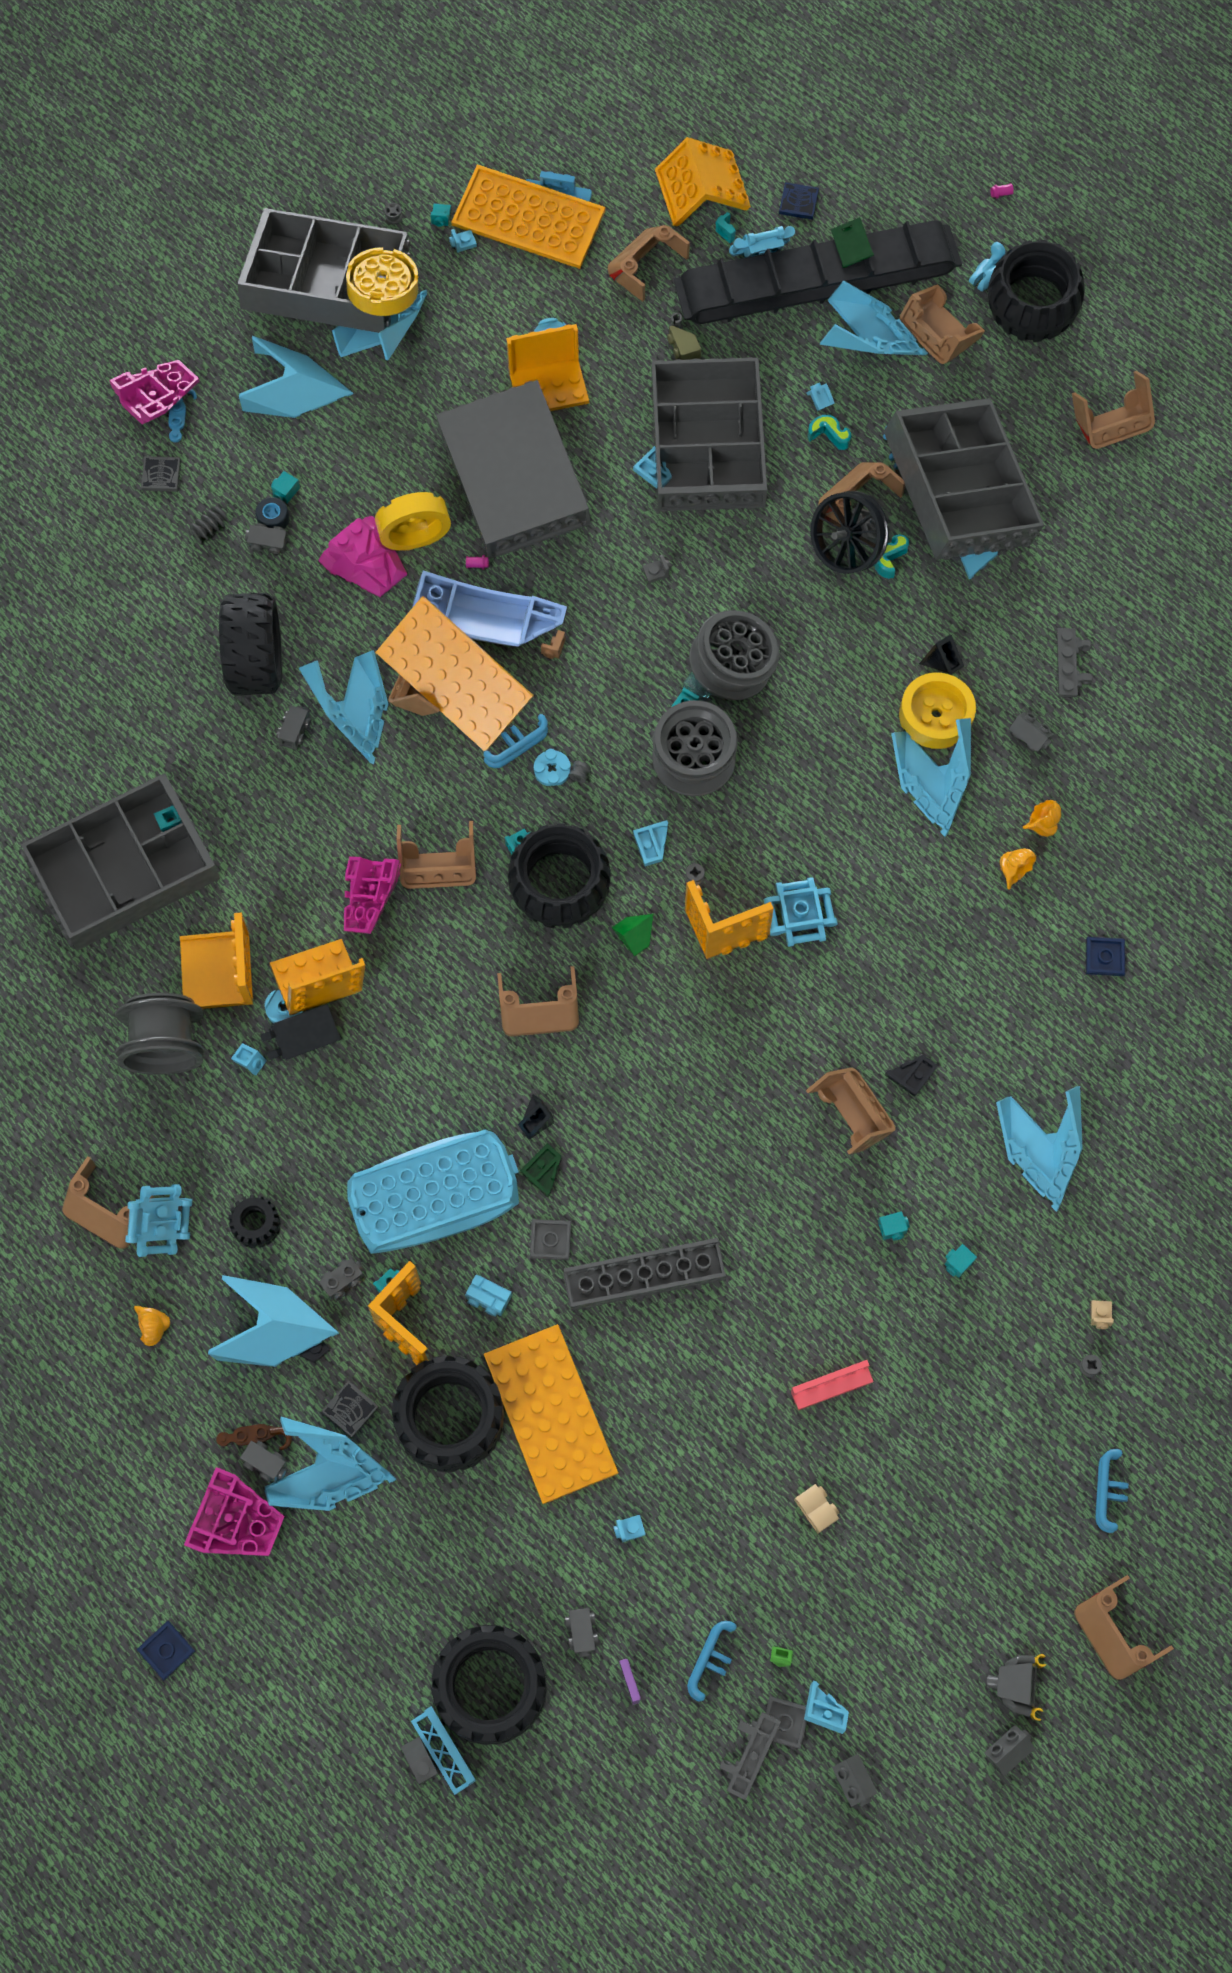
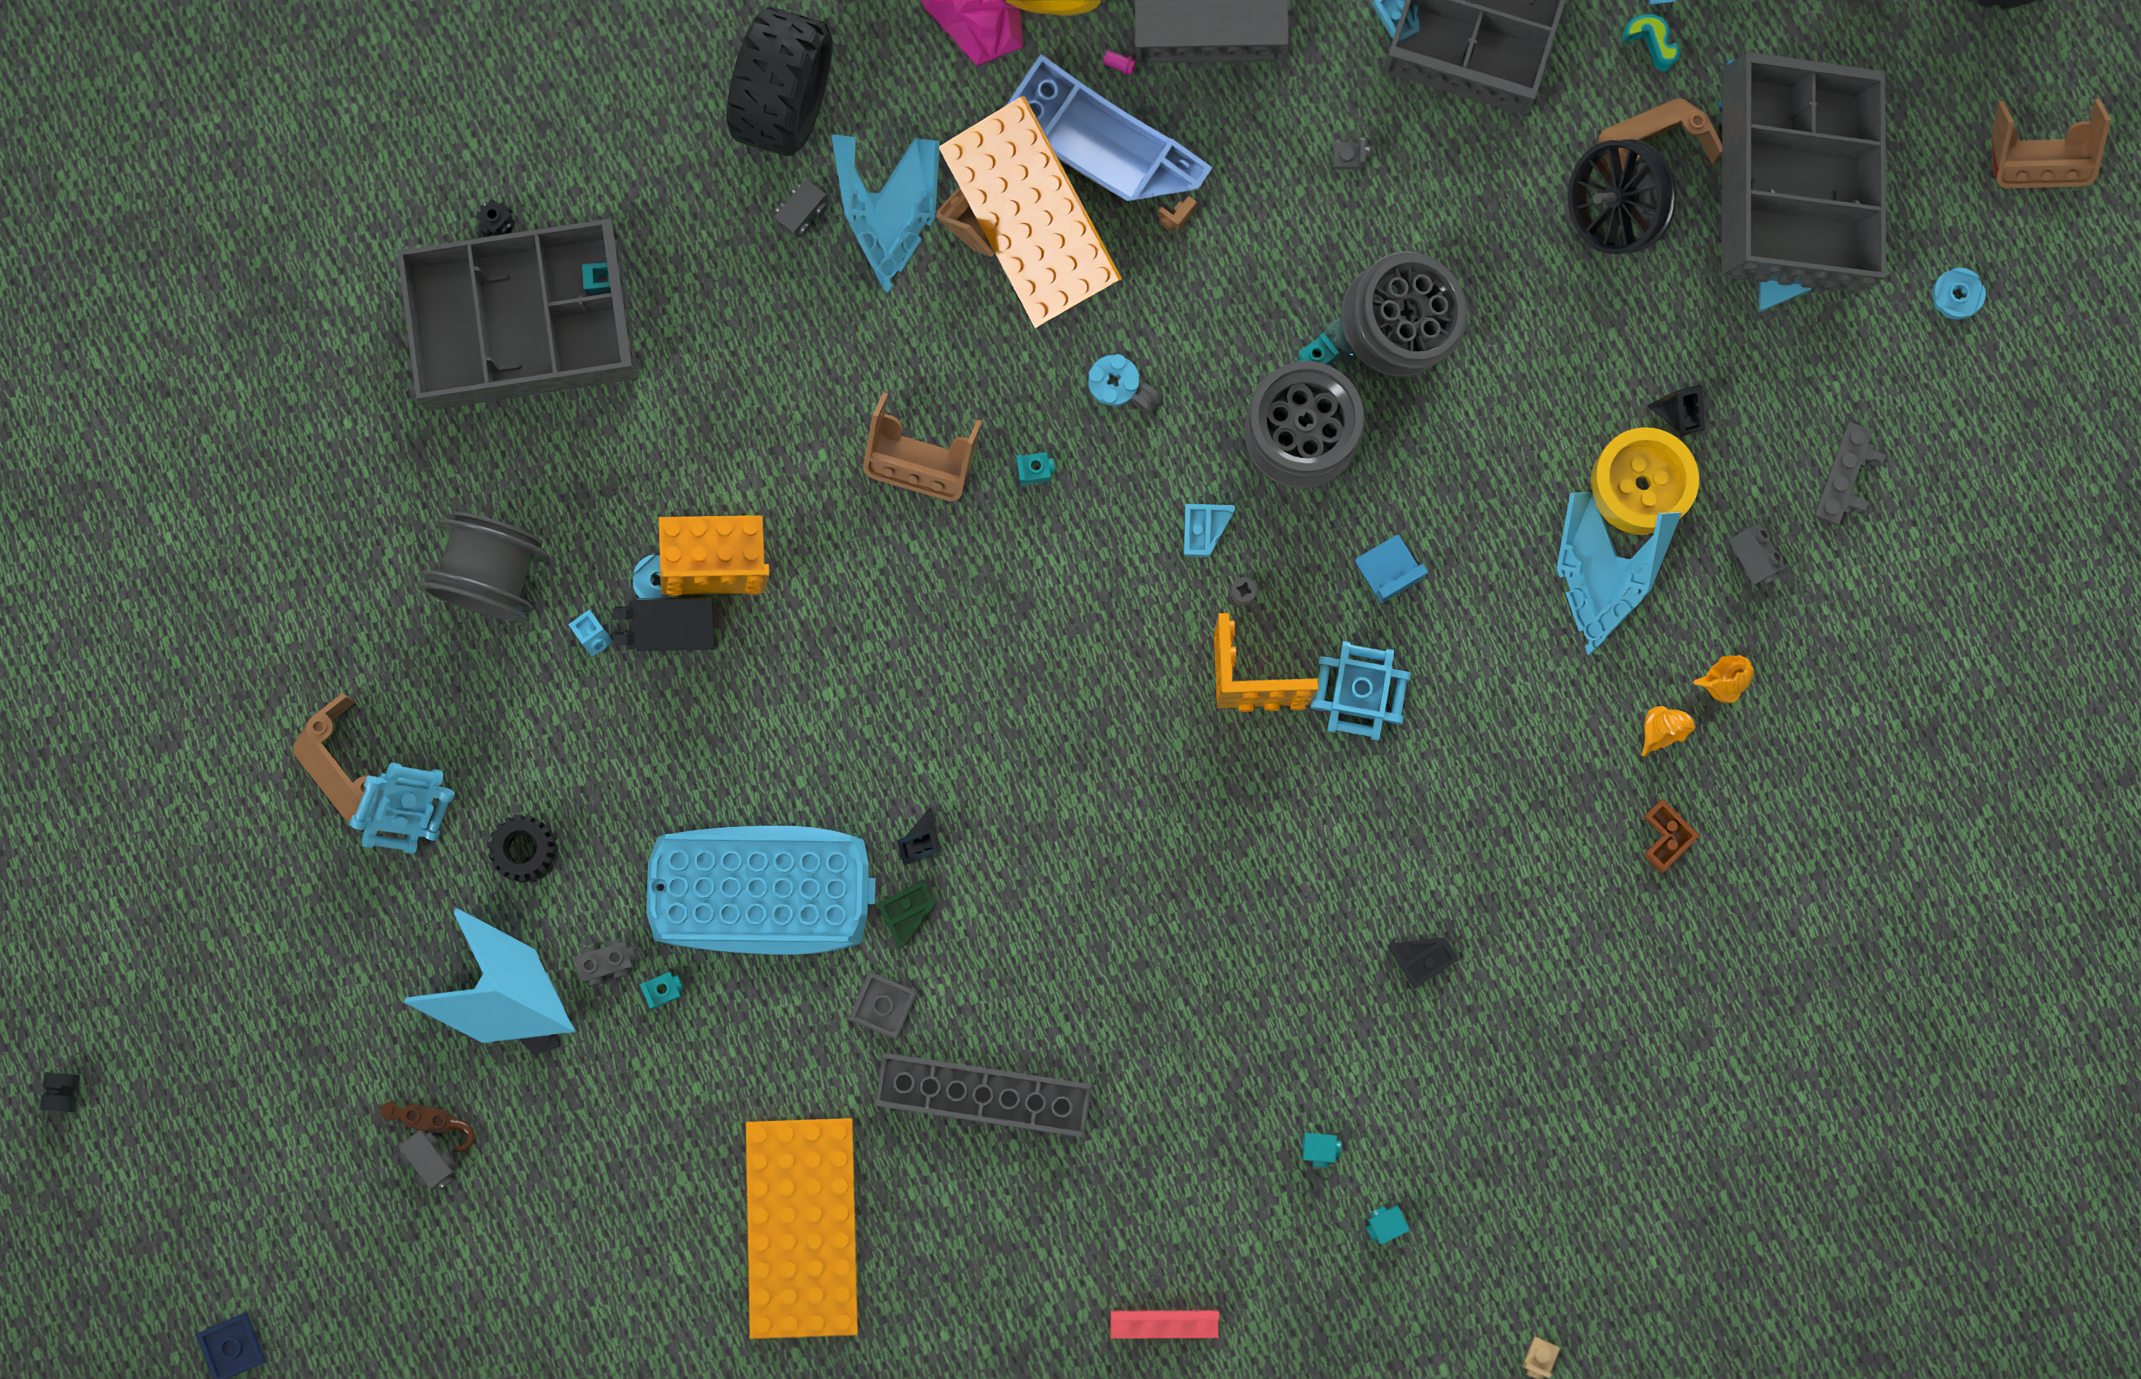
camera: 20 degrees right, 10 degrees up
(79, 803) = (492, 225): none -> black brick
(152, 1324) = (352, 935): light orange hair -> none
(218, 967) = (592, 499): light orange bracket -> none
(233, 1519) = (364, 1220): dark pink wedge -> none
(338, 1472) = (507, 1208): medium azure windscreen -> none
(350, 1409) = (557, 1130): tile -> none
(369, 891) = (821, 465): dark pink wedge -> none
(394, 1298) = (635, 1050): light orange bracket -> none
(448, 1371) = (615, 1176): black tyre -> none
(488, 1295) = (778, 1051): medium azure brick -> none
(519, 747) = (1083, 338): dark azure piece -> none
(541, 1016) = (975, 713): medium nougat windscreen -> none
(551, 841) = (1071, 484): black tyre -> none
(635, 932) = (1138, 641): green slope -> none
(789, 826) = (1390, 568): none -> dark azure bracket
(857, 1106) = (1335, 975): medium nougat windscreen -> none
(895, 549) = (1679, 236): teal animal -> none
(1044, 1157) = (1549, 1129): medium azure windscreen -> none
(1051, 933) = (1674, 839): none -> dark orange brick
(1093, 533) = (1971, 287): none -> medium azure plate
(1105, 956) = (1734, 891): dark blue tile -> none

